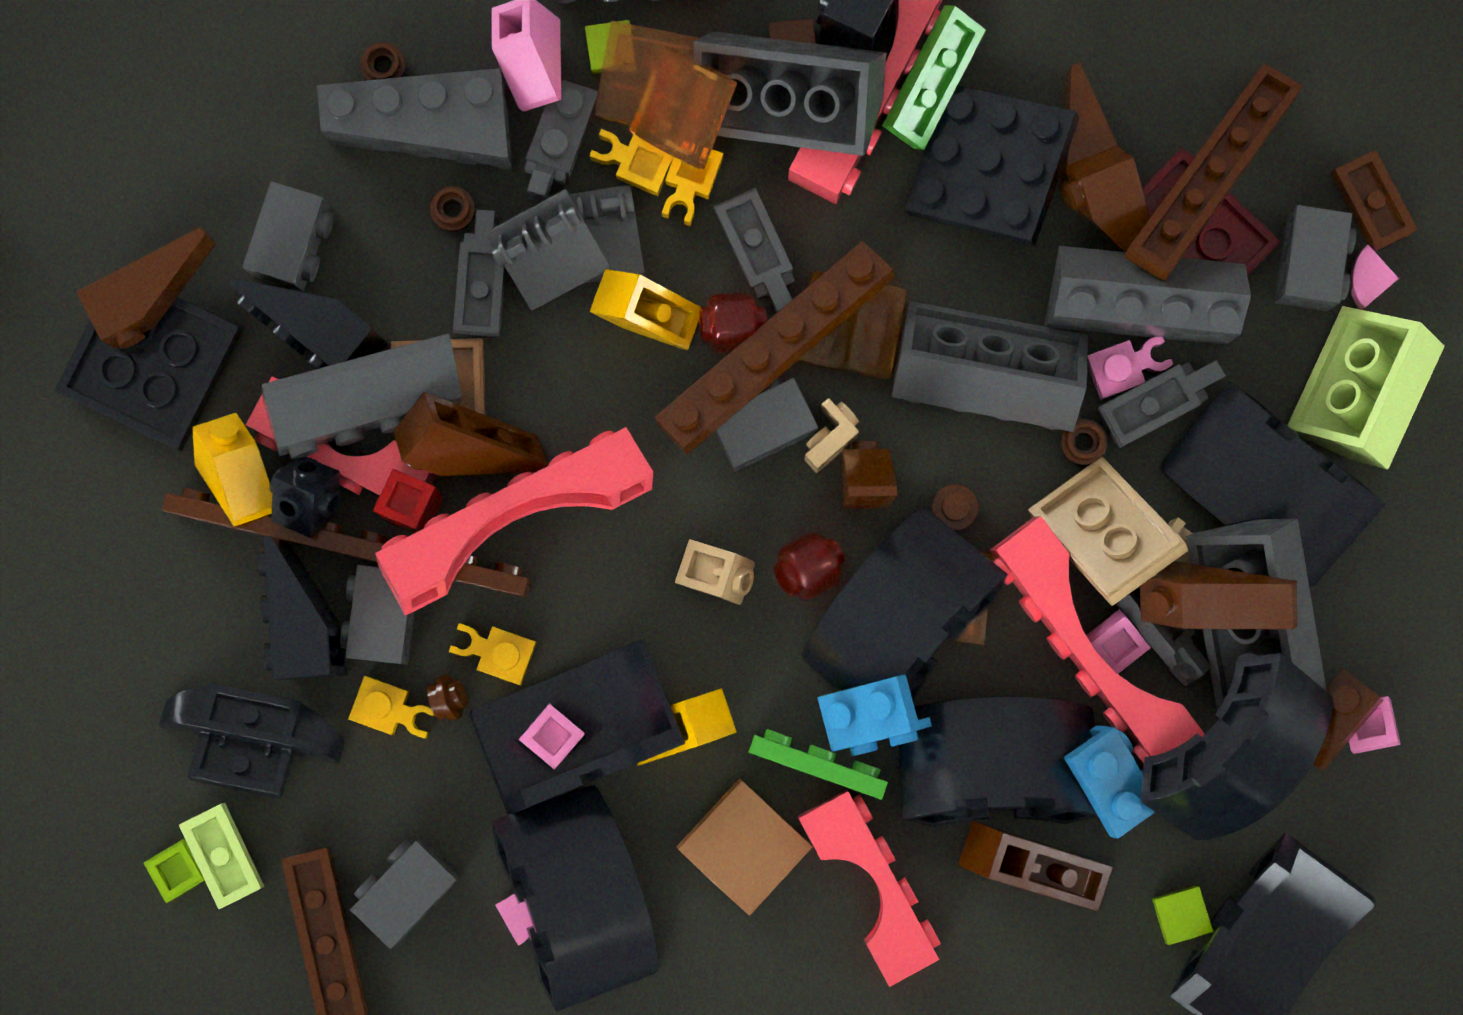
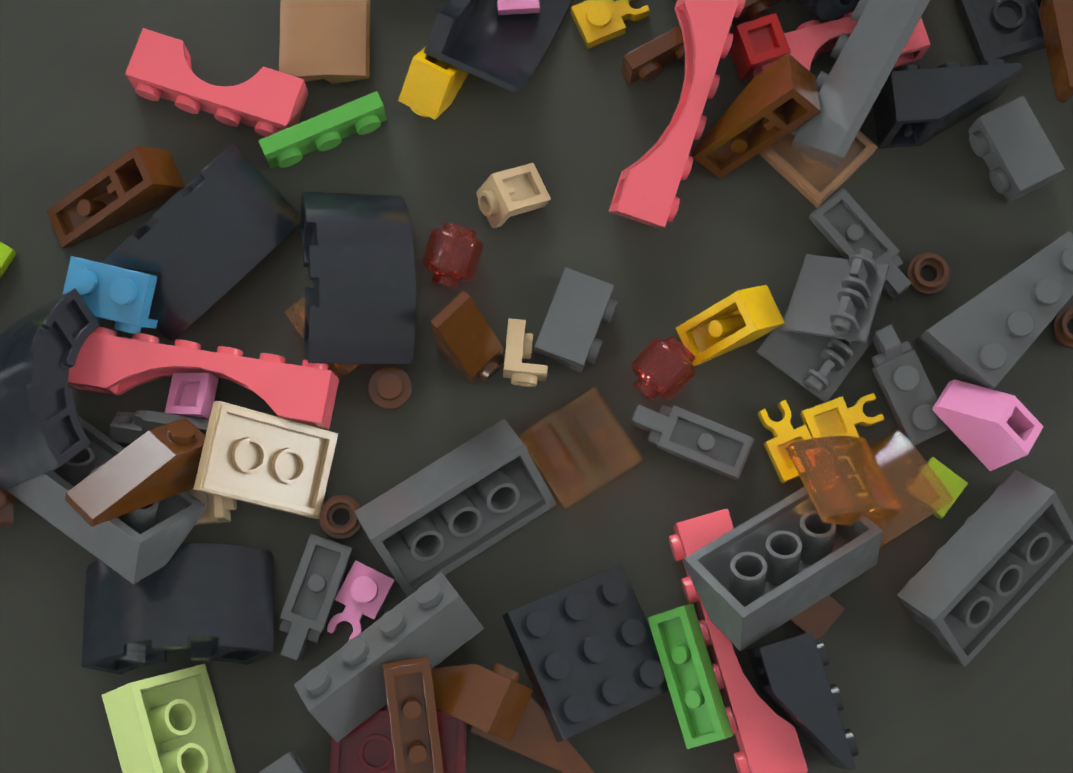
camera: 130 degrees right, 5 degrees down
(774, 347) = (616, 375): reddish brown plate -> none
(869, 714) = (315, 186): dark azure bracket -> none

